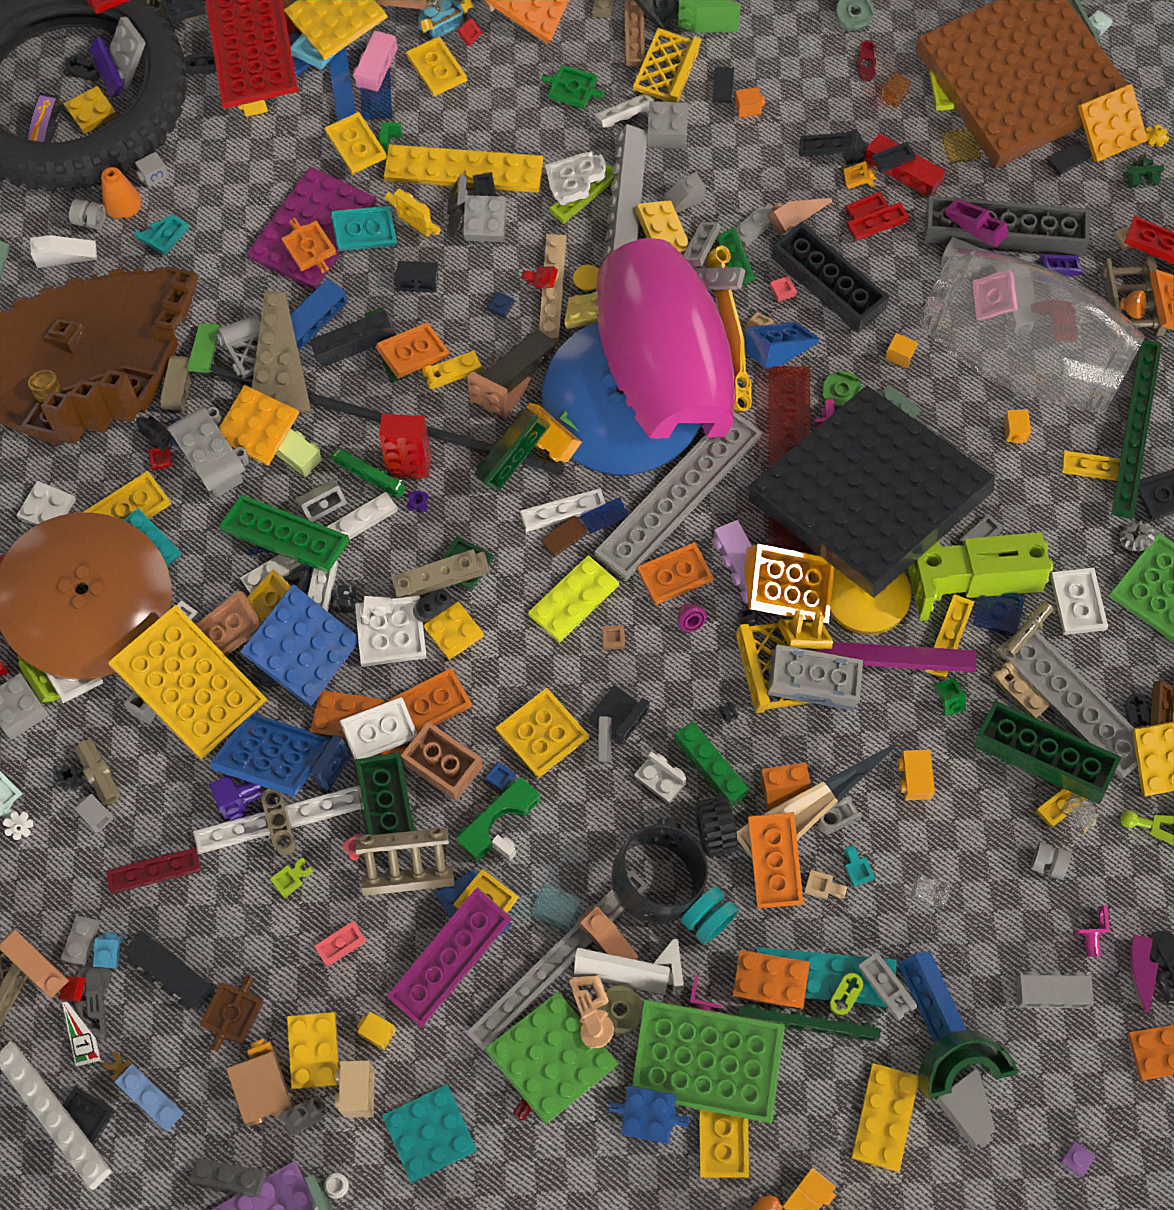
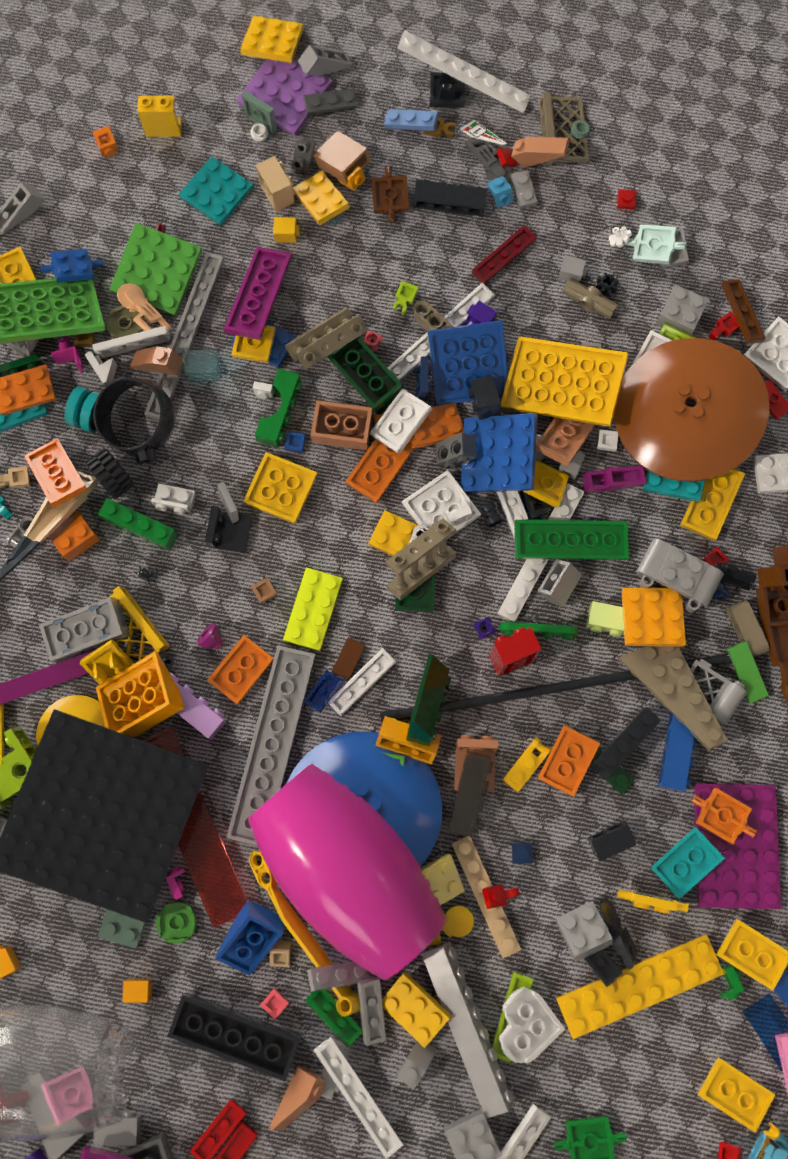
camera: 155 degrees right, 10 degrees up
(204, 574) = (613, 479): none -> magenta slope
(278, 706) = (485, 397): none -> black brick
(340, 943) = (343, 272): coral plate -> none
(345, 676) = (456, 450): none -> dark grey brick
(745, 191) = (358, 1097): none -> white plate

